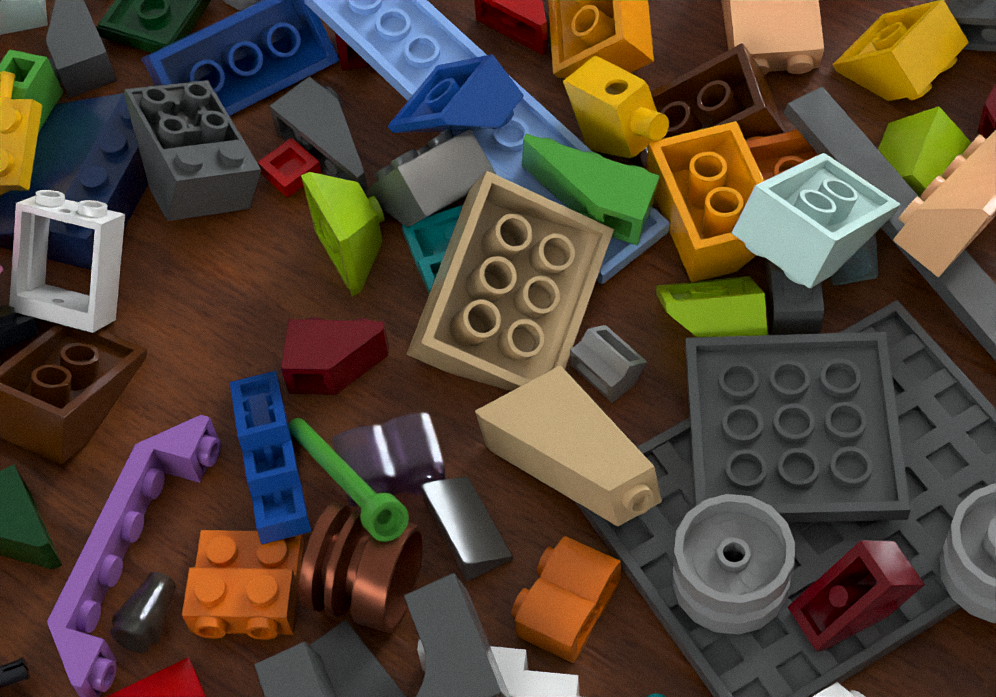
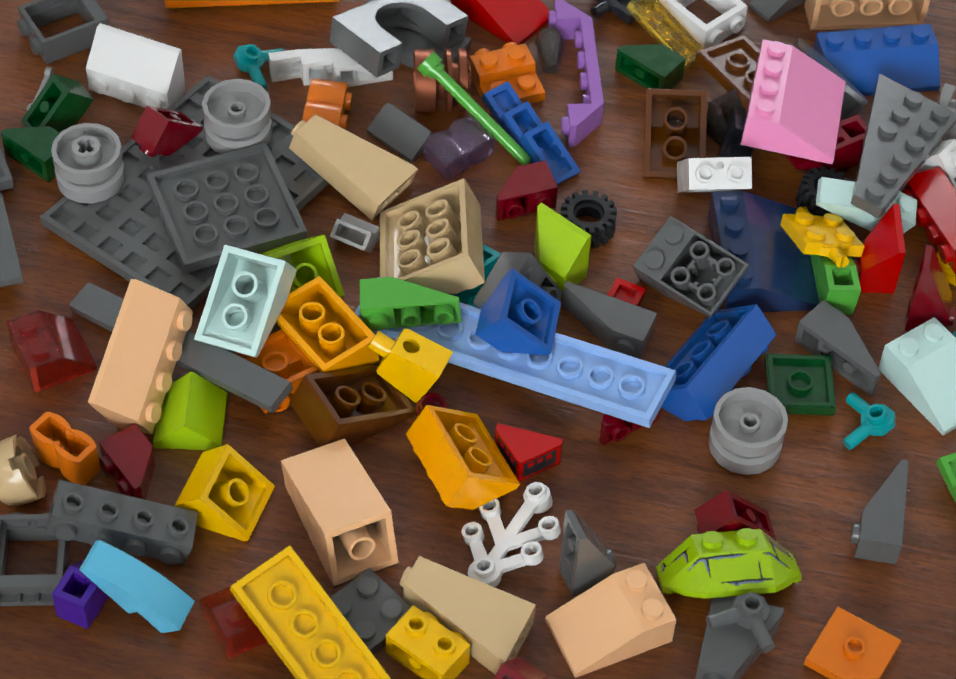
camera: 150 degrees right, 5 degrees down
(262, 271) = (591, 206): none -> black tyre

